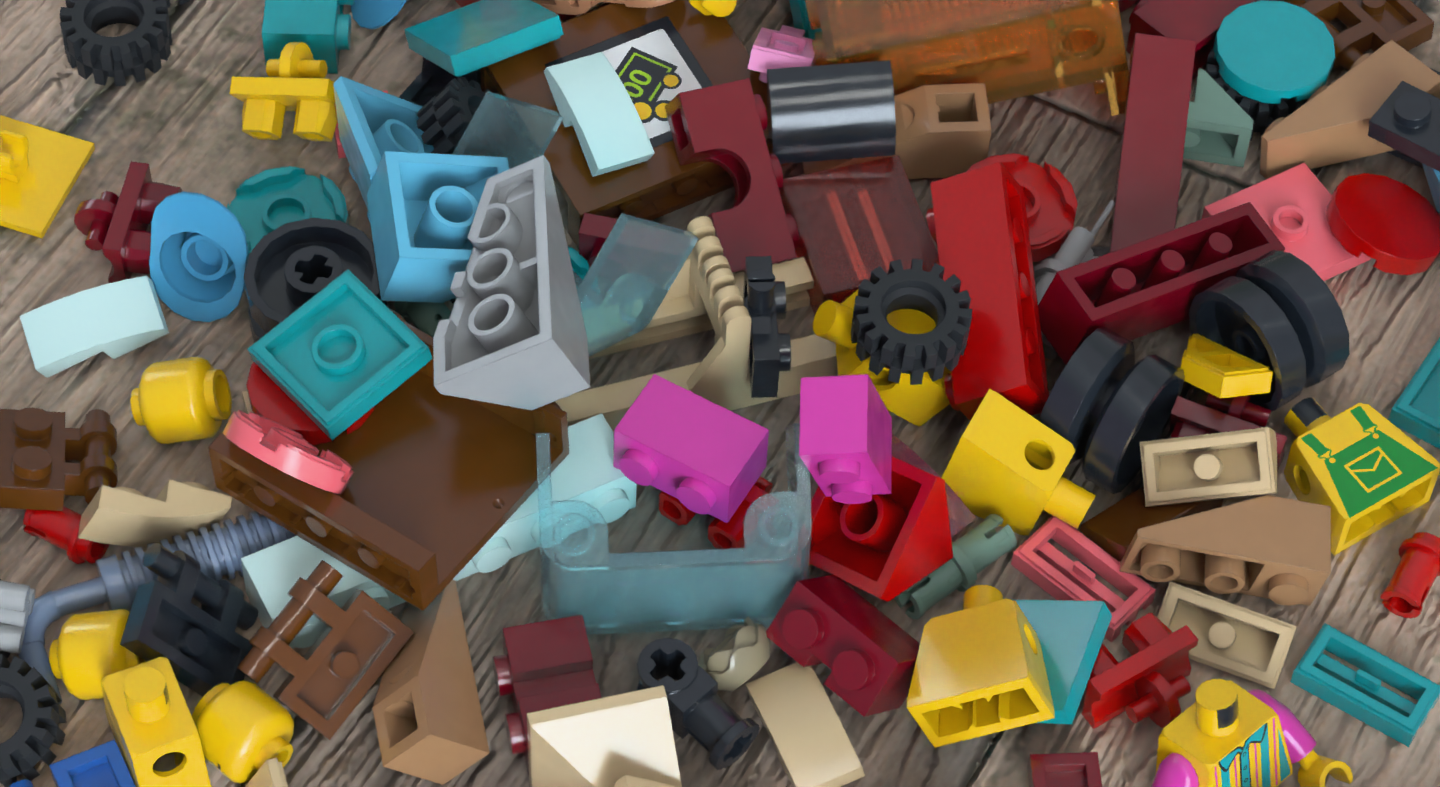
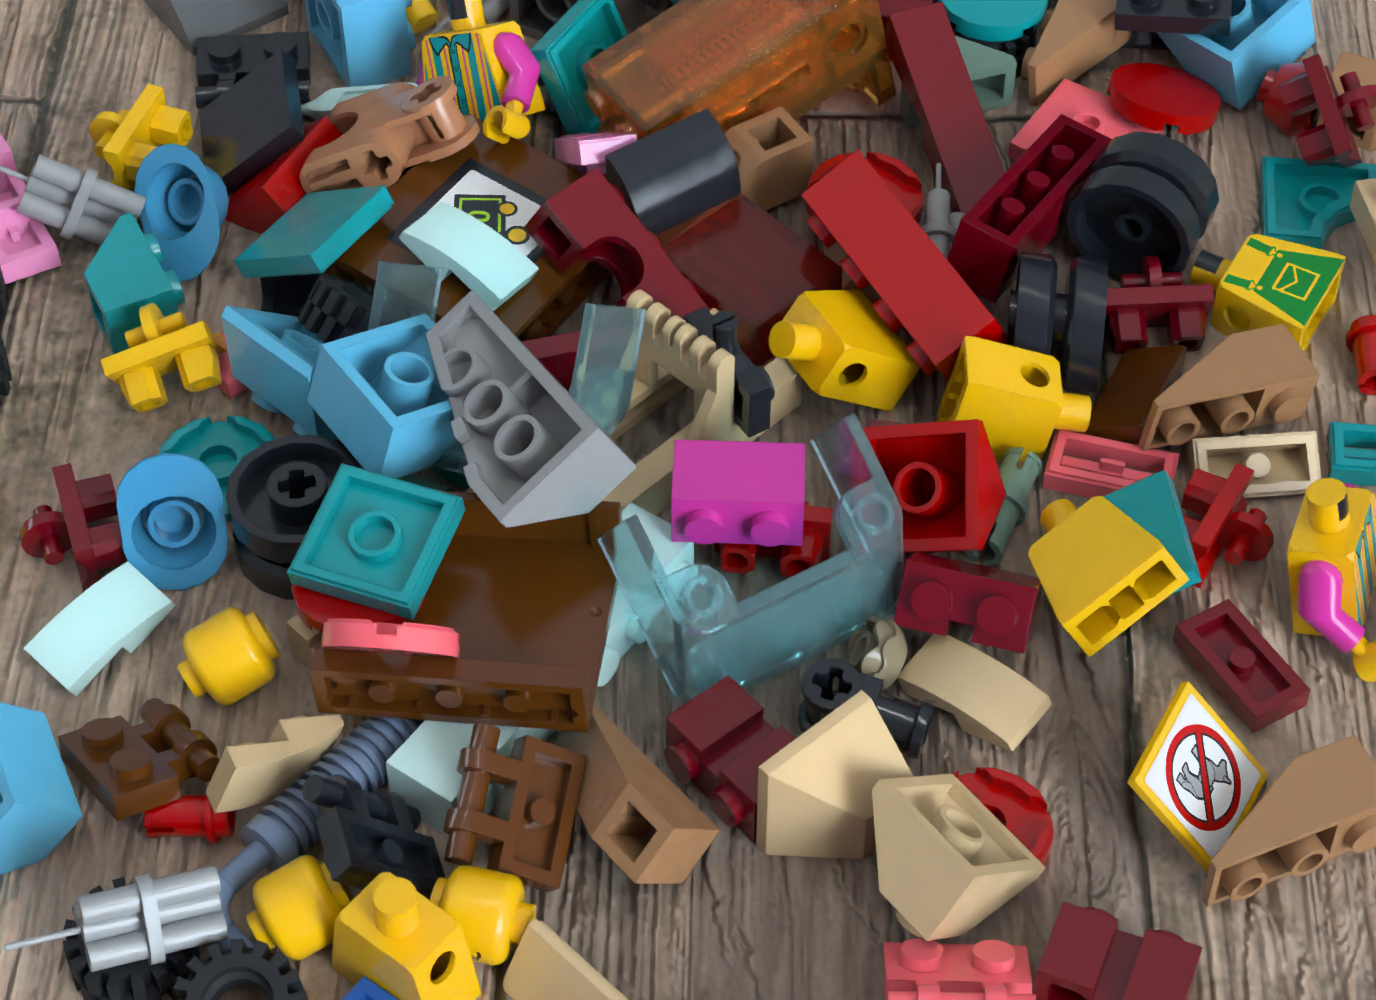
camera: 25 degrees left, 5 degrees down
(845, 437) = (891, 410): dark pink brick -> none
(915, 291) = (864, 332): black tyre -> none
(1209, 467) = (1168, 332): tan slope -> none
(1223, 370) = (1130, 251): yellow tile -> none

